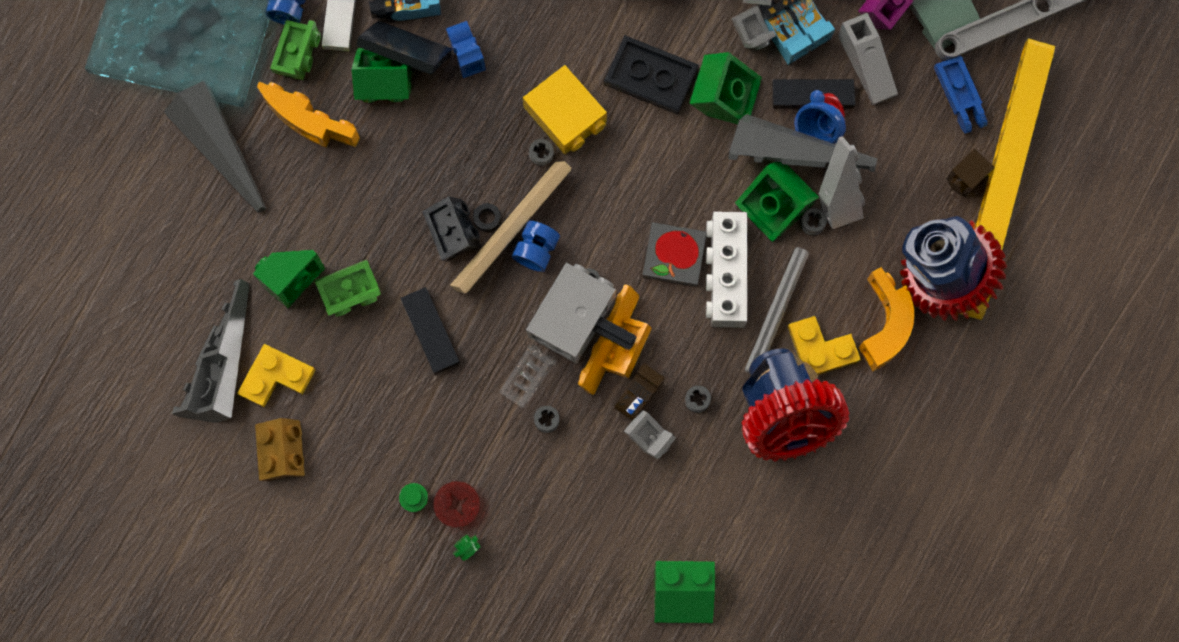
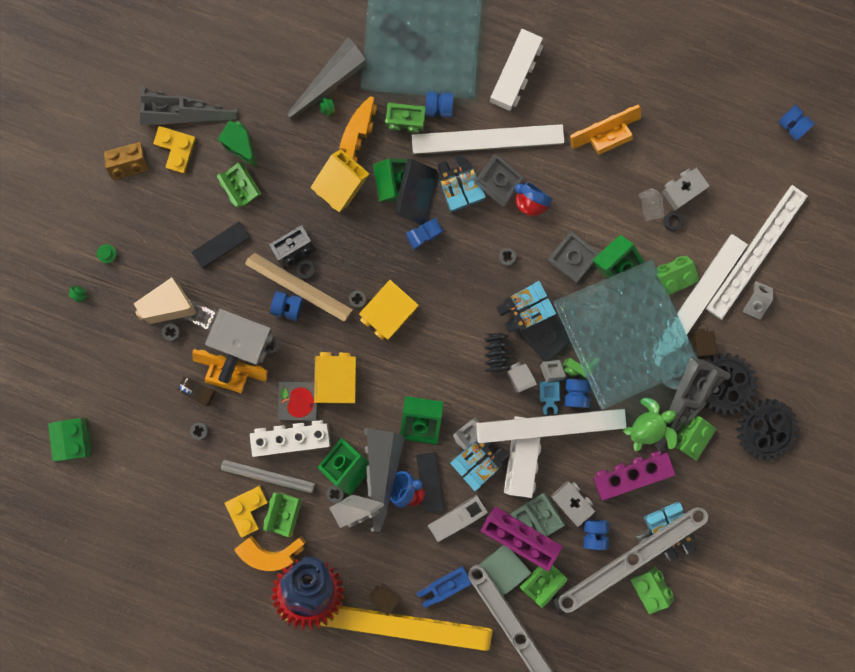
camera: 80 degrees right, 10 degrees up
(259, 152) = (327, 107): none -> green plate
(370, 143) = (339, 180): none -> yellow brick
(461, 491) = (97, 282): clear red gear -> none
(504, 417) = (164, 303): none -> tan slope
(649, 435) = (168, 402): light grey bracket -> none
(650, 194) = (334, 378): none -> yellow brick
(651, 74) = (426, 366): black tile -> none
(790, 407) = (195, 491): red piece -> none
(834, 294) = (282, 514): none -> bright green bracket

